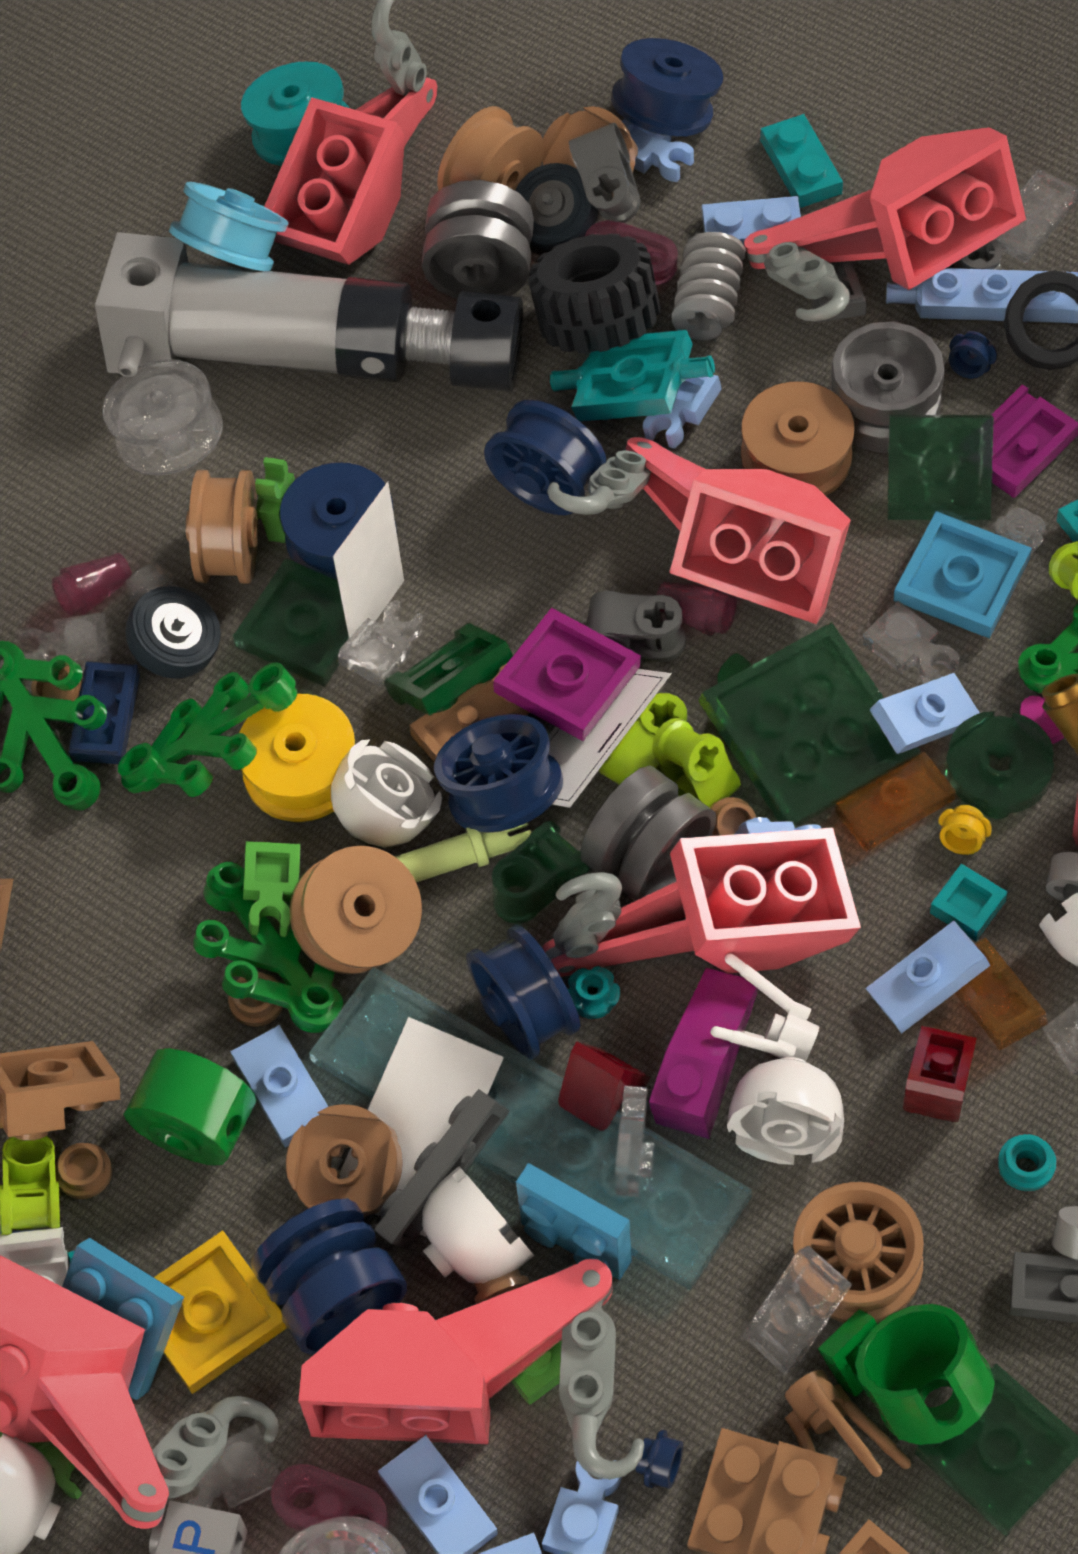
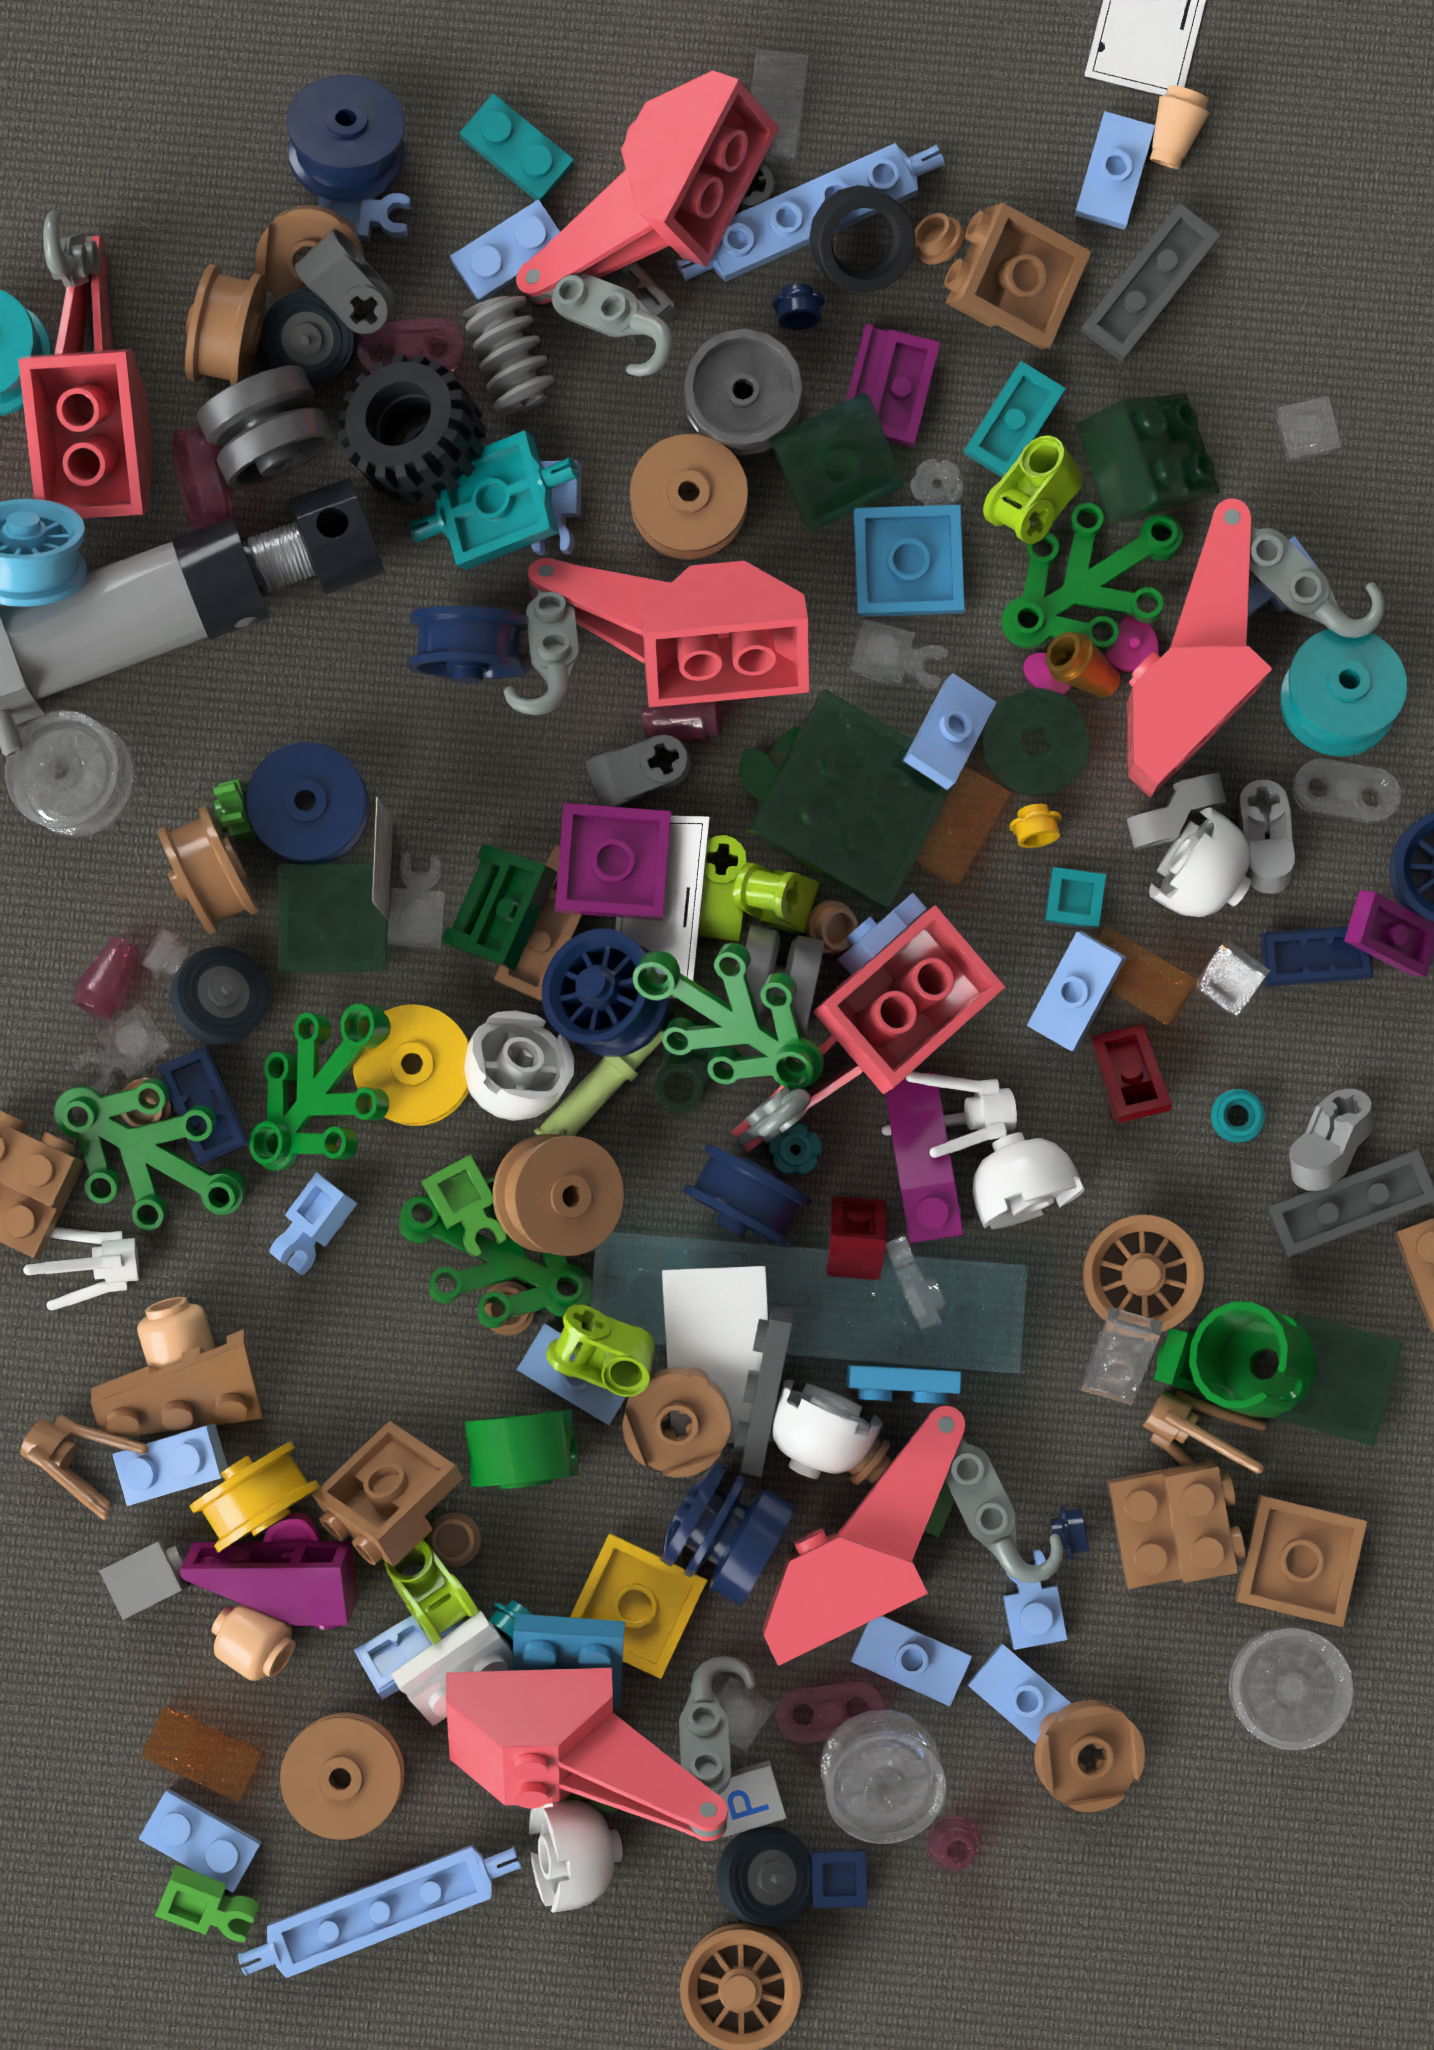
camera: 35 degrees left, 25 degrees up
(141, 841) = (314, 1217): none -> light blue plate
(306, 1051) = (603, 1351): none -> lime piece
(407, 257) = (198, 478): none -> clear pink plate
(598, 821) = (735, 1022): none -> green plant

